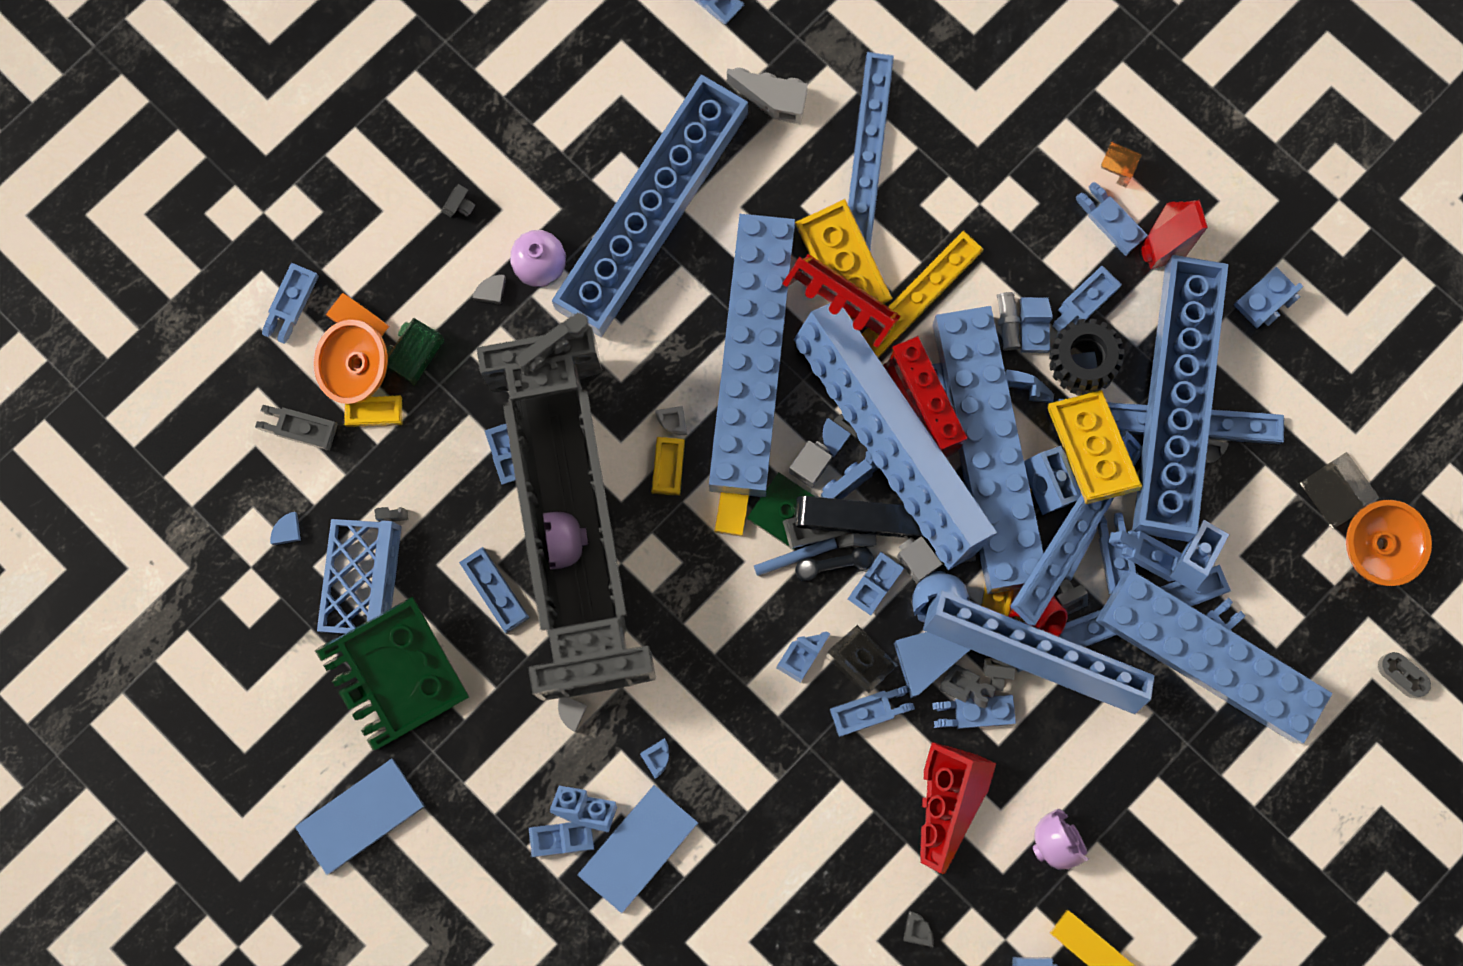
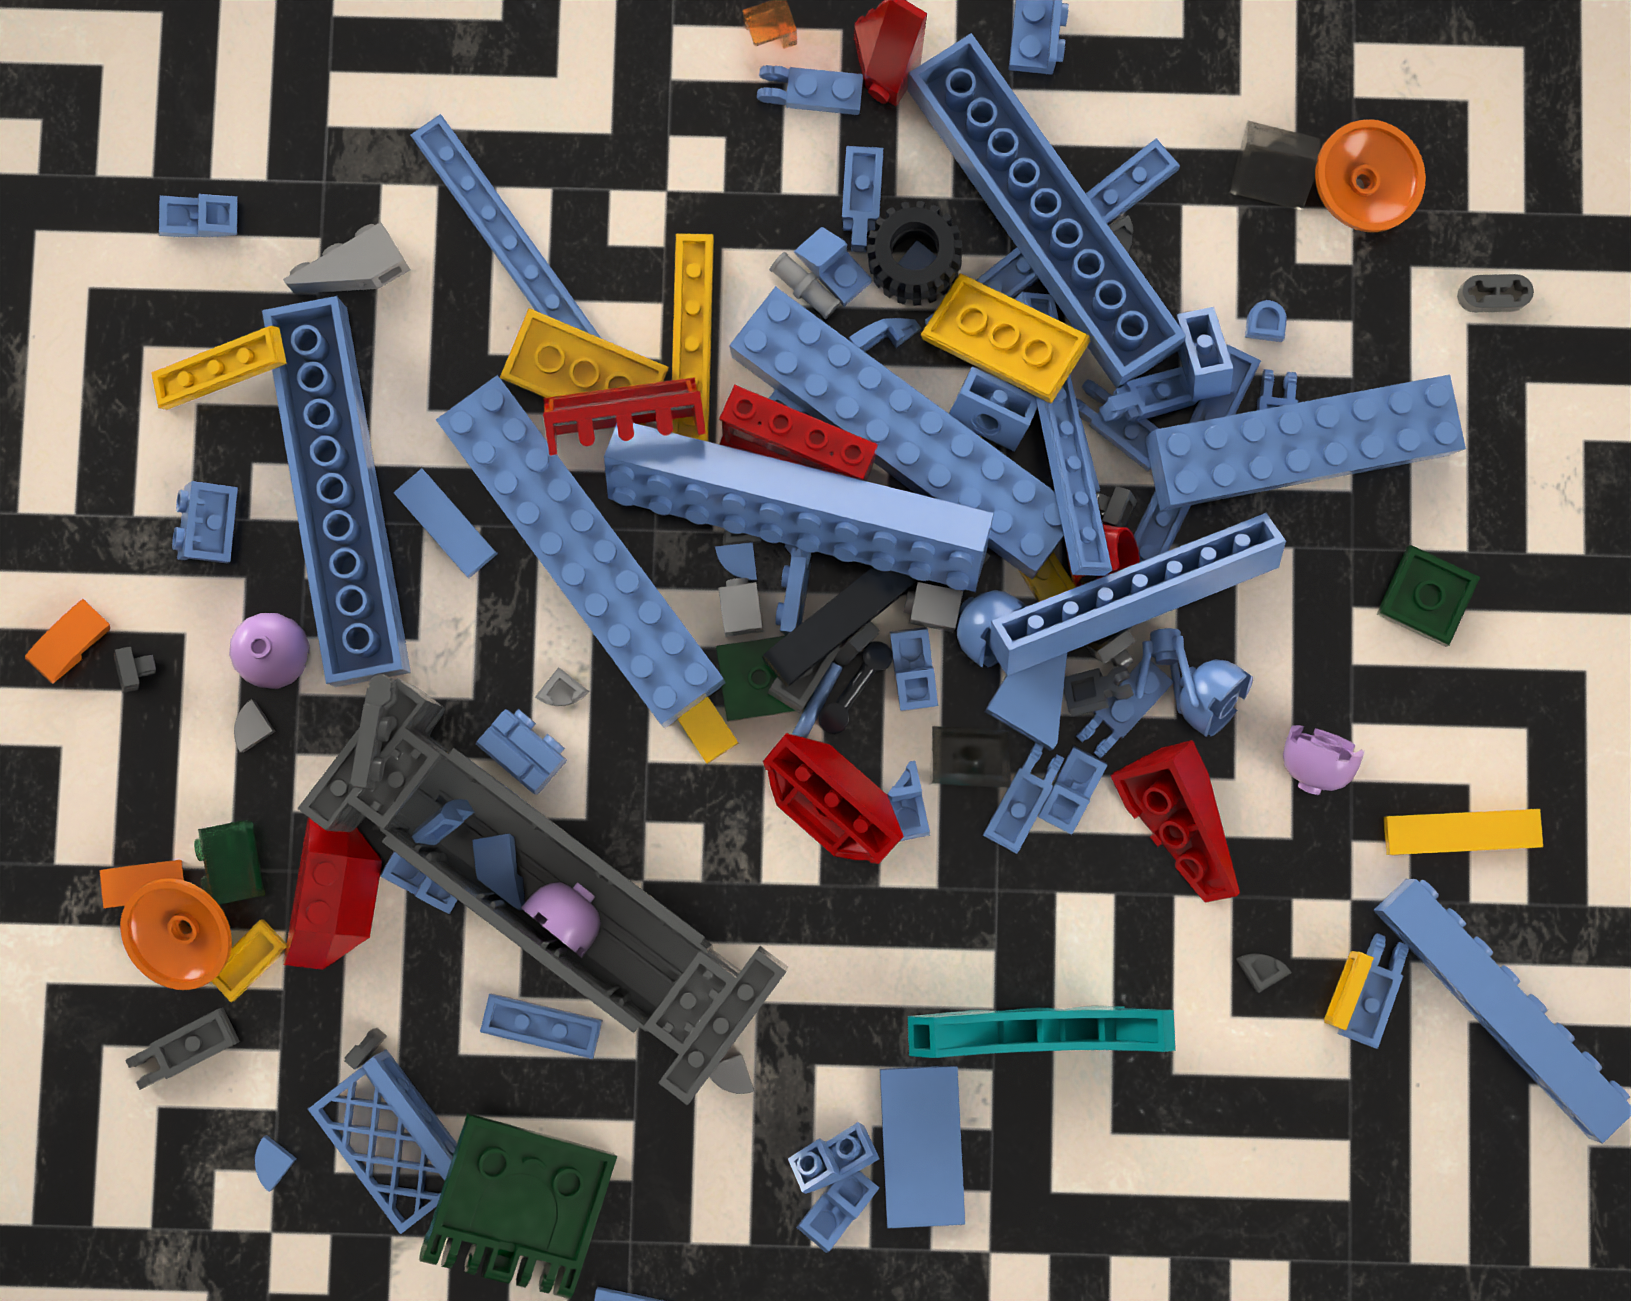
camera: 45 degrees left, 5 degrees up
(290, 301) = (52, 928): medium blue hinge -> none
(438, 157) = (66, 641): none -> orange slope
(449, 418) = (332, 897): none -> red wedge
(544, 429) = (442, 822): none -> medium blue slope
(550, 481) = (498, 867): none -> medium blue slope
(568, 160) = (205, 522): none -> medium blue bracket
(621, 432) = (522, 751): none -> medium blue brick
(650, 85) = (219, 367): none -> yellow tile
(656, 757) = (857, 1040): medium blue tile -> none
(668, 466) = (599, 740): yellow tile -> none
(693, 275) = (445, 523): none -> medium blue tile
(761, 842) = (1041, 1030): none -> teal arch
(764, 611) = (832, 799): none -> red wedge
(903, 730) = (1072, 789): none -> medium blue slope
(1027, 701) = (1168, 649): none -> medium blue plant
(1030, 749) = (1217, 690): none -> medium blue cylinder
(1207, 809) = (1428, 595): none -> dark green plate
(1254, 572) = (1266, 322): none -> medium blue tile

